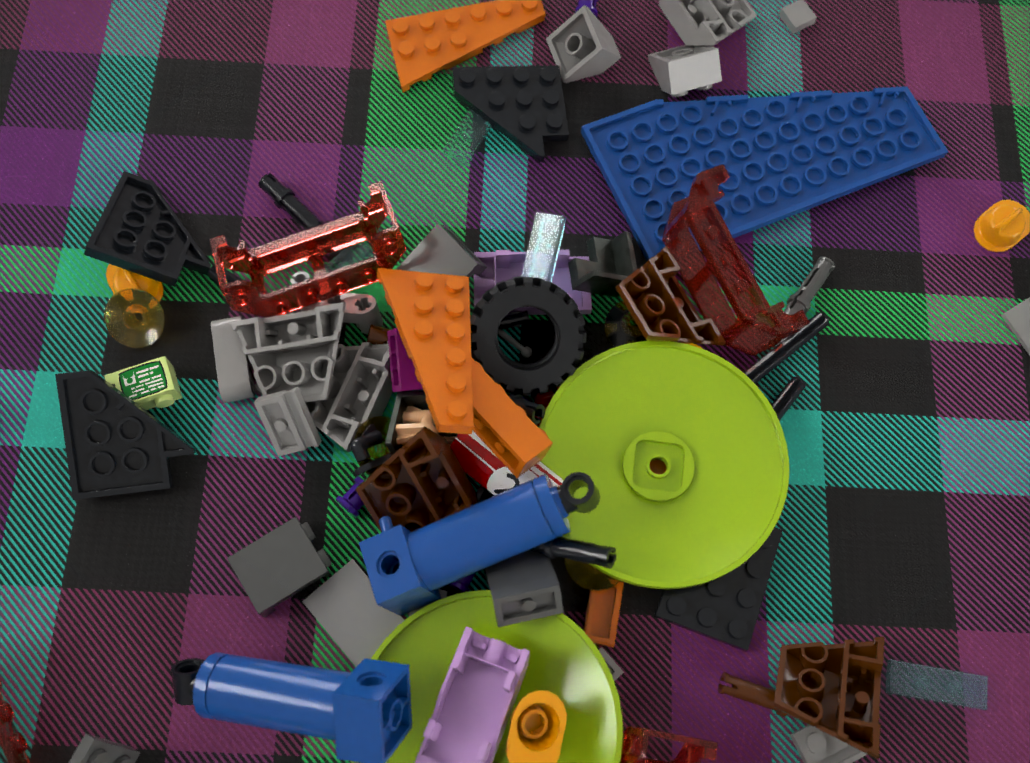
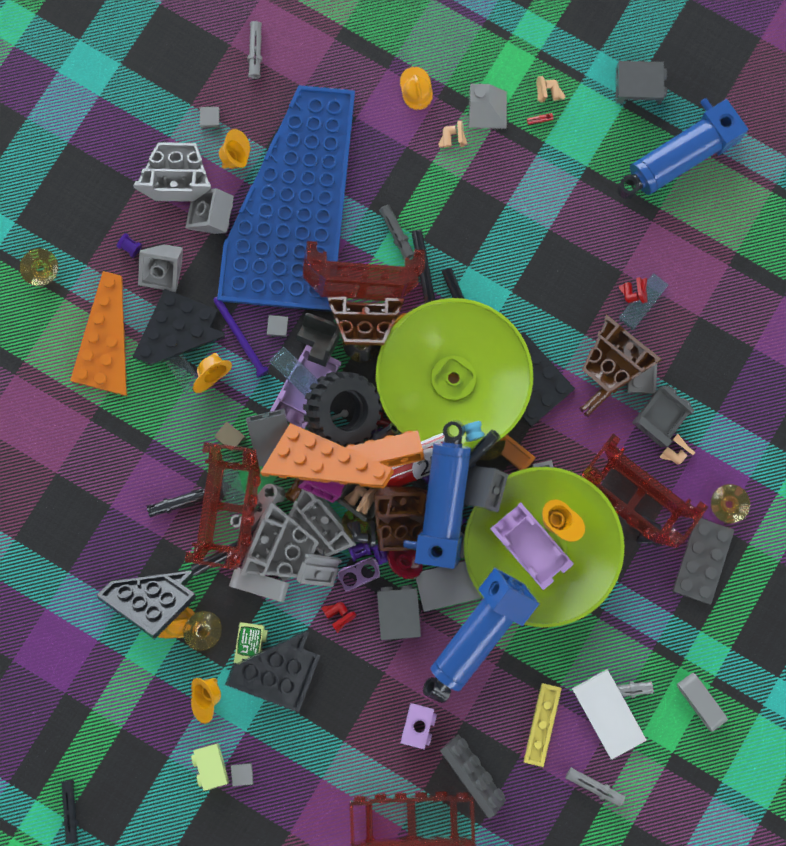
camera: 60 degrees left, 10 degrees up
(43, 367) = (204, 698): none -> light orange piece
(103, 681) = (414, 738): none -> lavender brick
(244, 473) = (339, 607): none -> red piece
(294, 459) = (357, 571): none -> lavender piece
(336, 461) = (359, 550): none -> dark purple bush
(352, 519) = (404, 563): none -> dark red dish
(414, 221) = (229, 435): none -> dark tan panel
(482, 162) = (210, 371): none -> light orange piece
(522, 222) = (261, 371): none -> dark purple bar
(592, 214) = (277, 326): none -> light grey tile
(597, 525) = (473, 431): none -> medium azure wheel
(778, 56) = (235, 150): none -> light orange piece
(904, 25) = (254, 70): none -> light grey pin
(946, 674) = (631, 297): none -> red piece
(968, 293) = (448, 131): none -> light nougat piece

